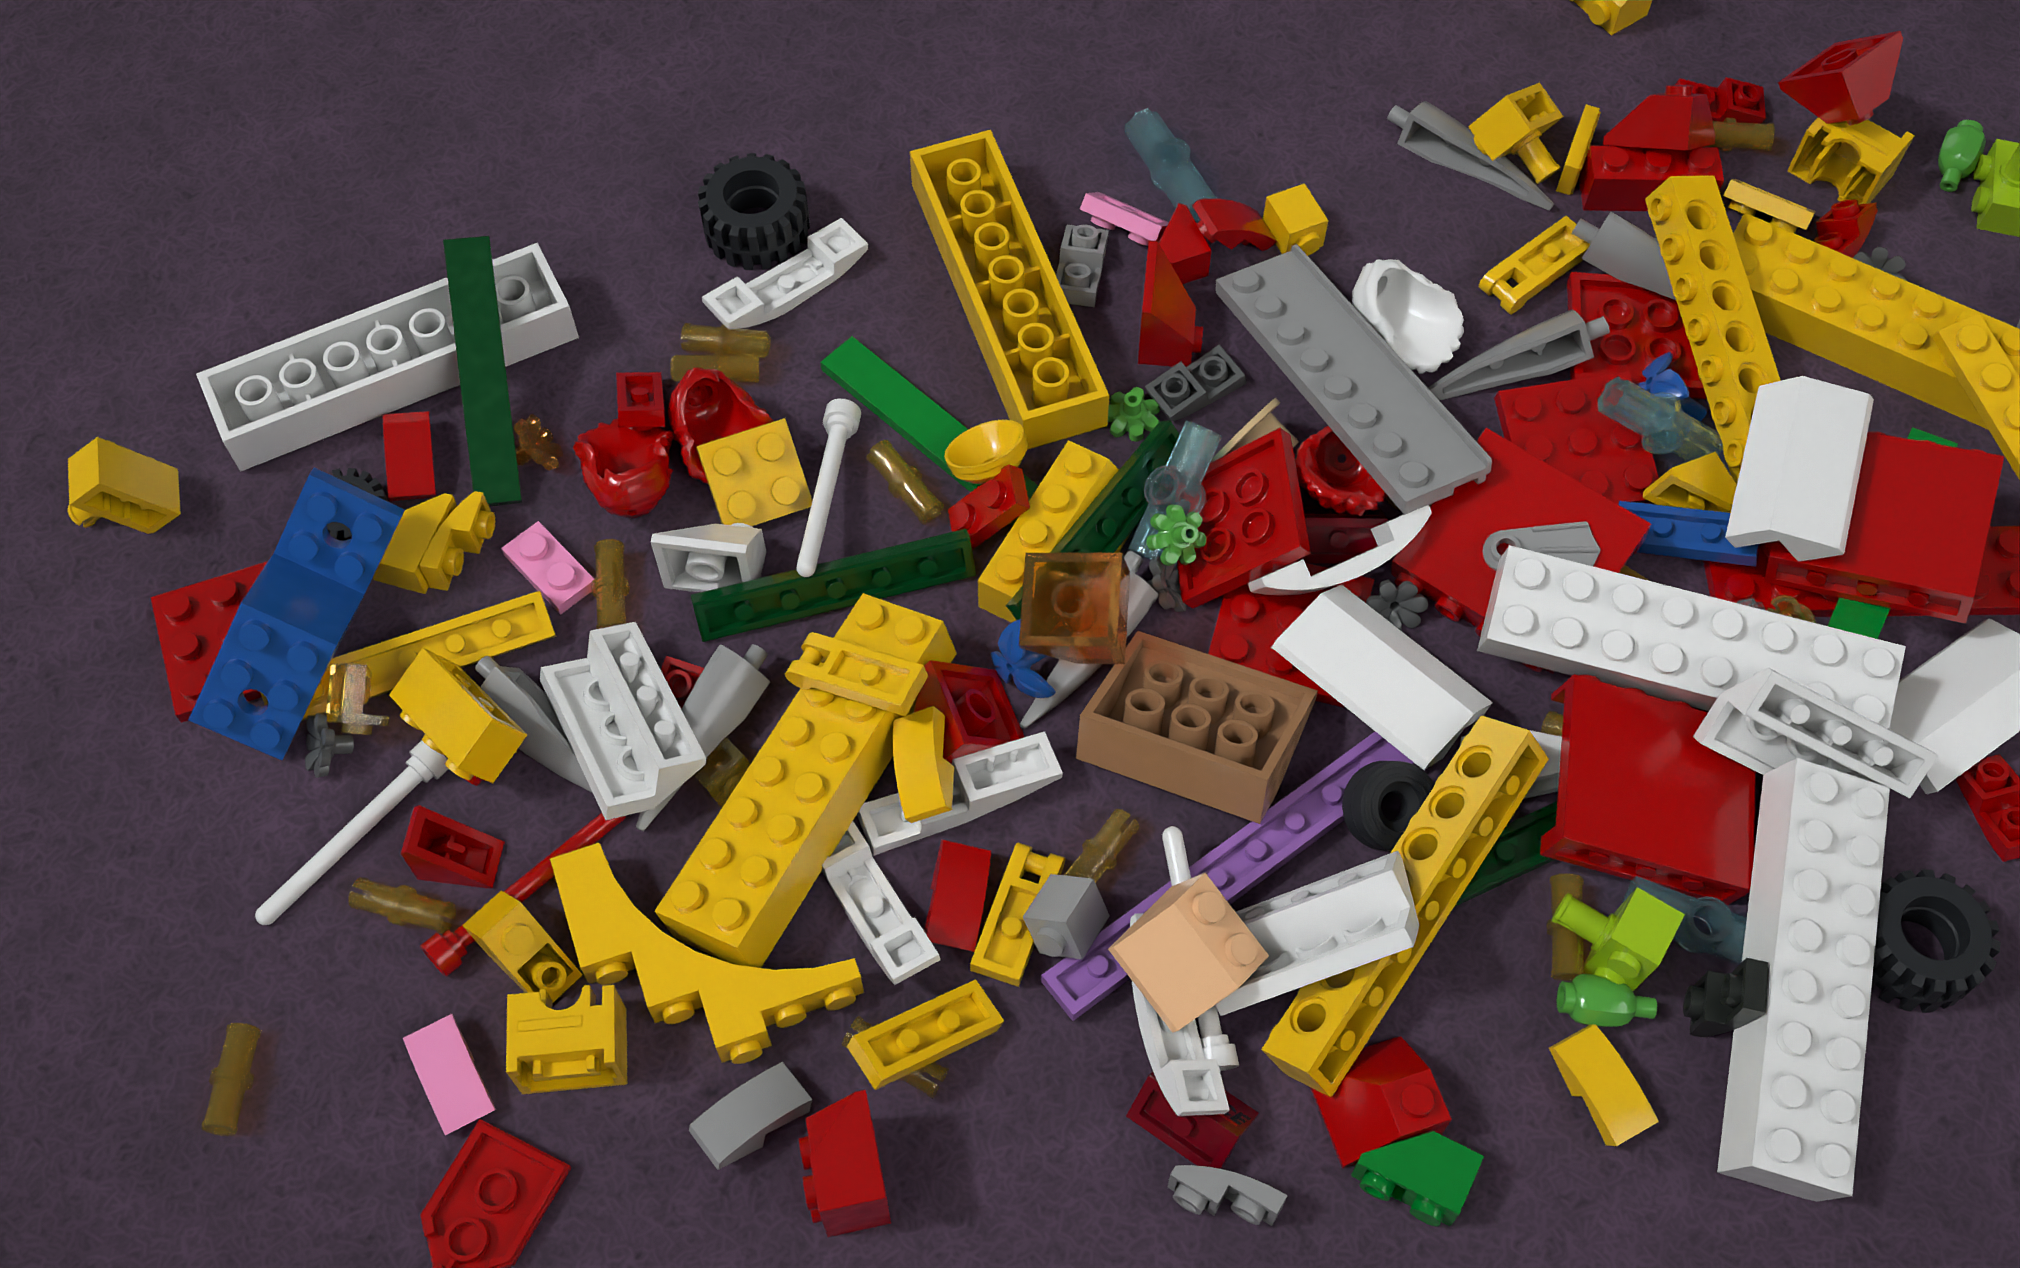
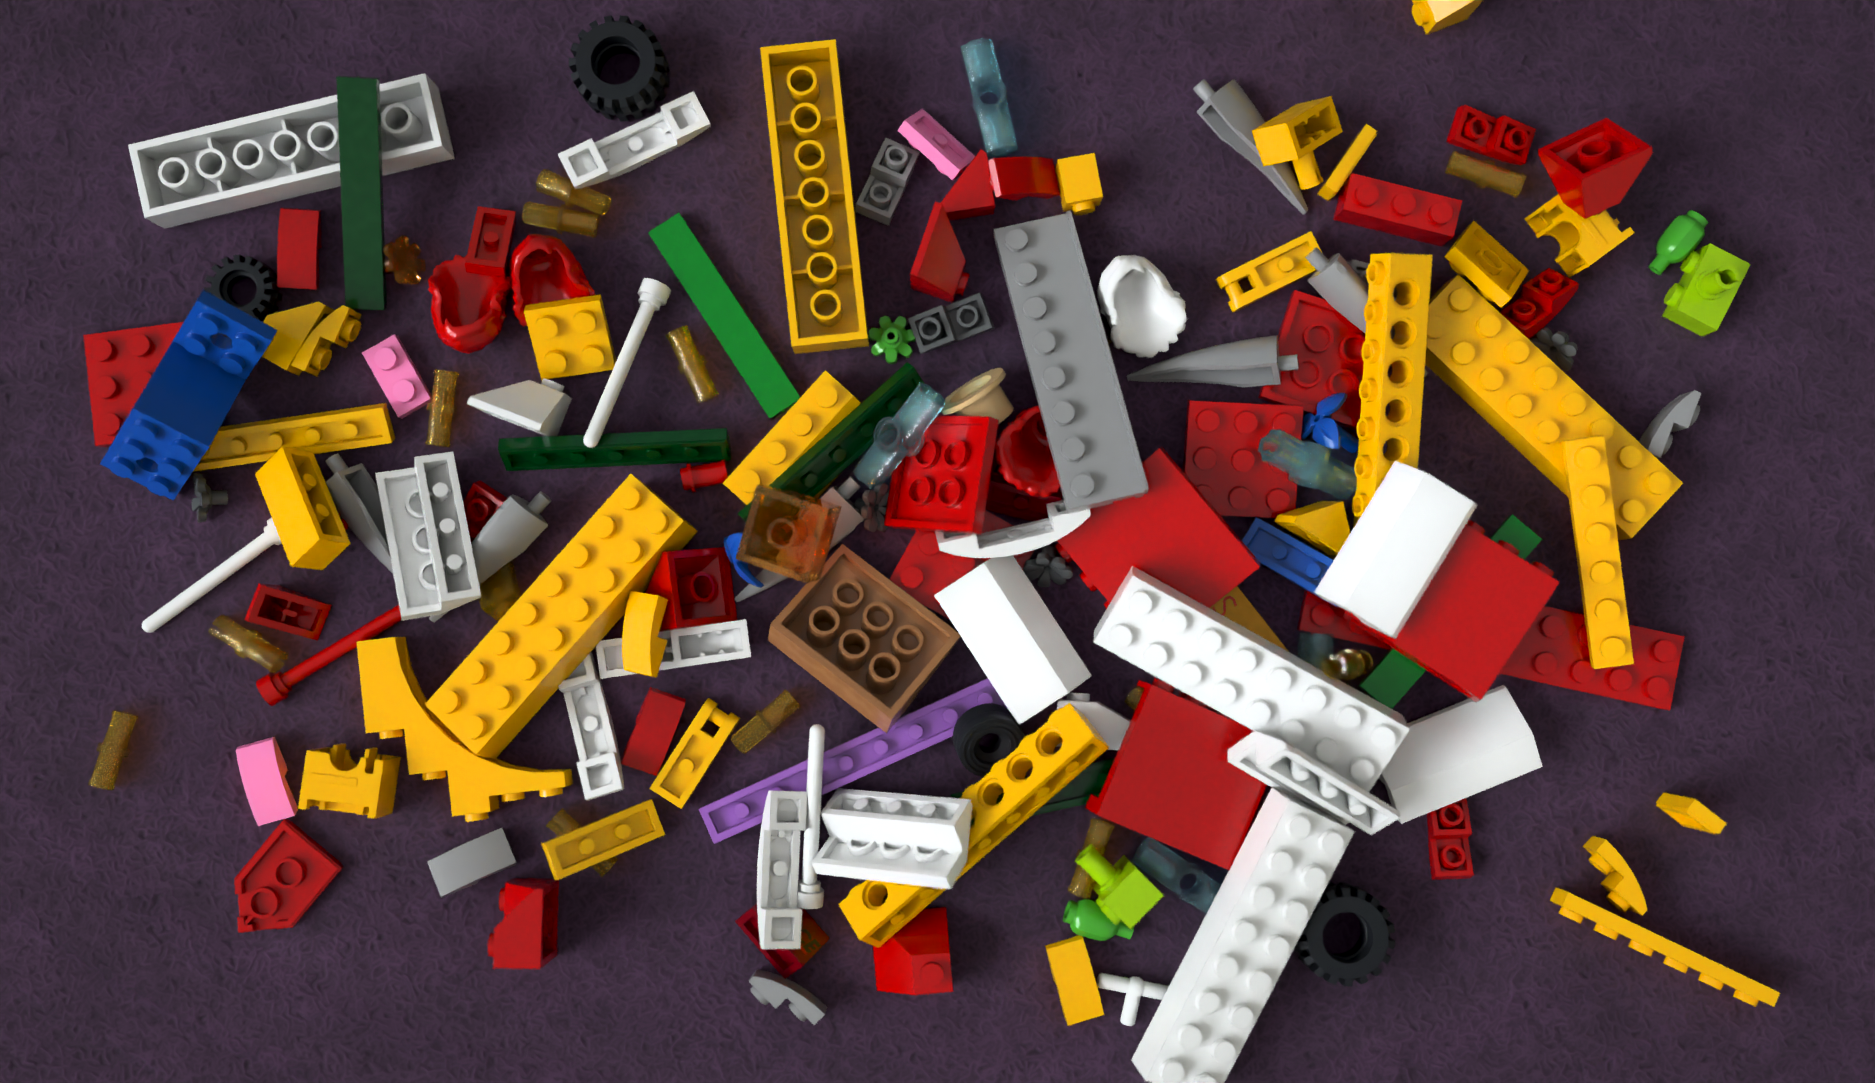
camera: 10 degrees right, 25 degrees up
(121, 487) = (64, 236): yellow brick -> none
(347, 694) = (224, 472): clear yellow bracket -> none
(521, 947) = (327, 699): yellow slope -> none
(857, 673) = (604, 559): yellow plate -> none
(948, 594) = (703, 475): none -> red pin
(985, 450) = (752, 356): yellow piece -> none
(991, 505) = (749, 413): red plate -> none
(1066, 916) = (724, 773): light grey brick -> none
(1176, 535) = (888, 478): bright green plant -> none
(1188, 951) = (798, 834): light nougat slope -> none
(1423, 1173) = (930, 1017): green slope -> none
(1564, 541) = (1173, 564): light grey piece -> none
(1666, 122) = (1421, 174): red slope -> none
(1685, 1083) = (1134, 989): none -> white piece
(1726, 1000) = (1179, 948): pearl dark grey slope -> none

